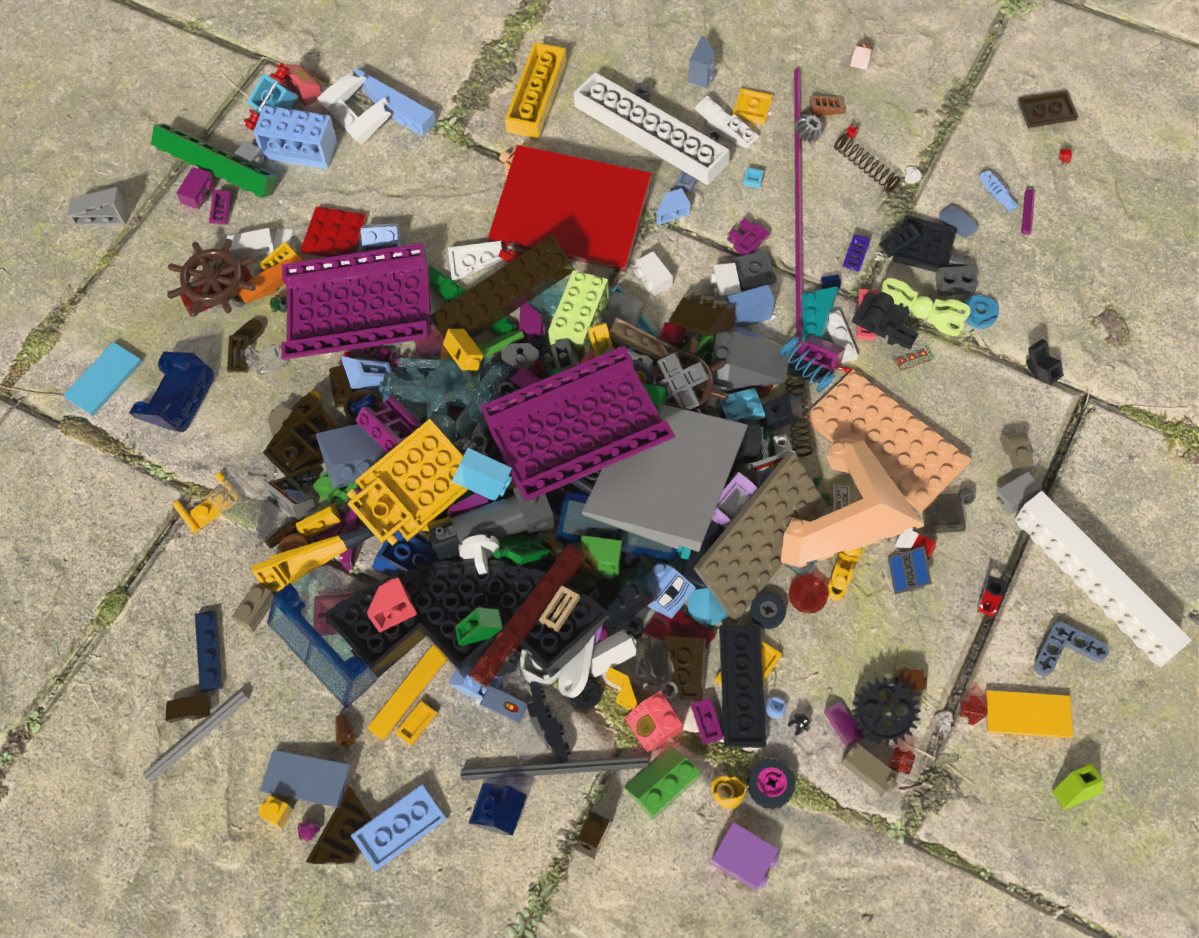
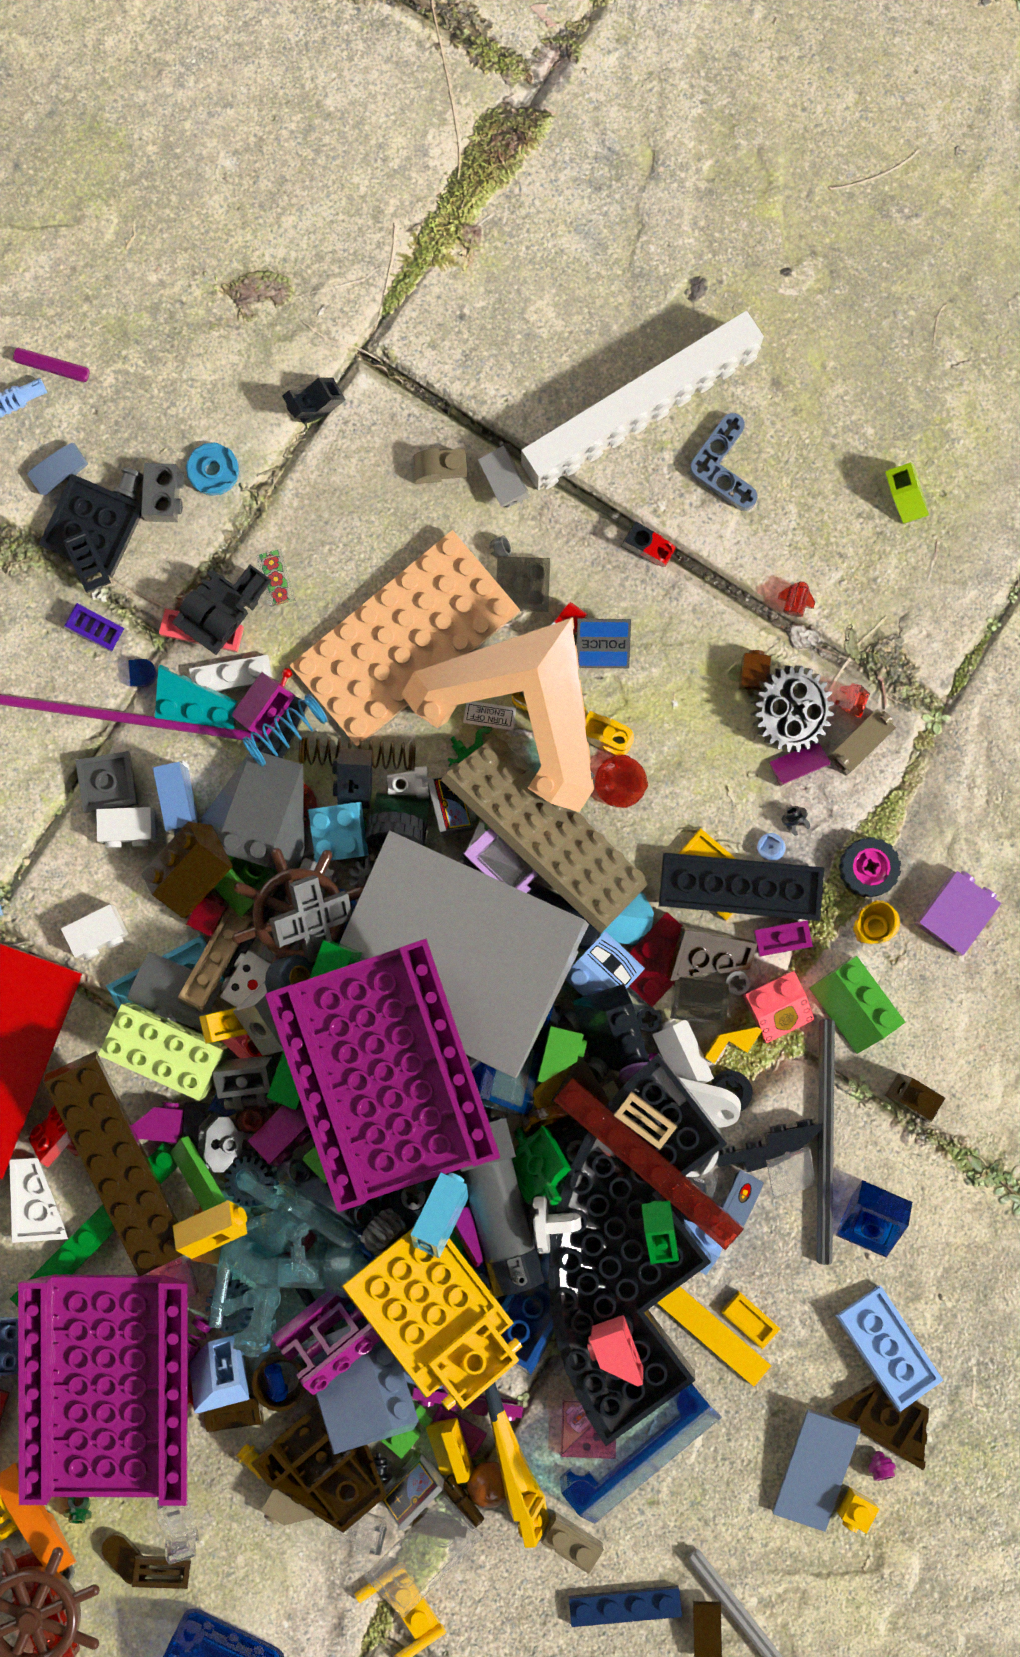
camera: 85 degrees left, 20 degrees up
(344, 731) = (755, 1417): reddish brown cone -> none
(547, 301) = (129, 1089): clear light blue brick -> none
(751, 240) = (52, 778): magenta plate -> none
(758, 613) = (642, 851): black bush -> none
(940, 313) = (206, 549): yellowish green piece -> none
(1028, 714) = (805, 530): yellow tile -> none

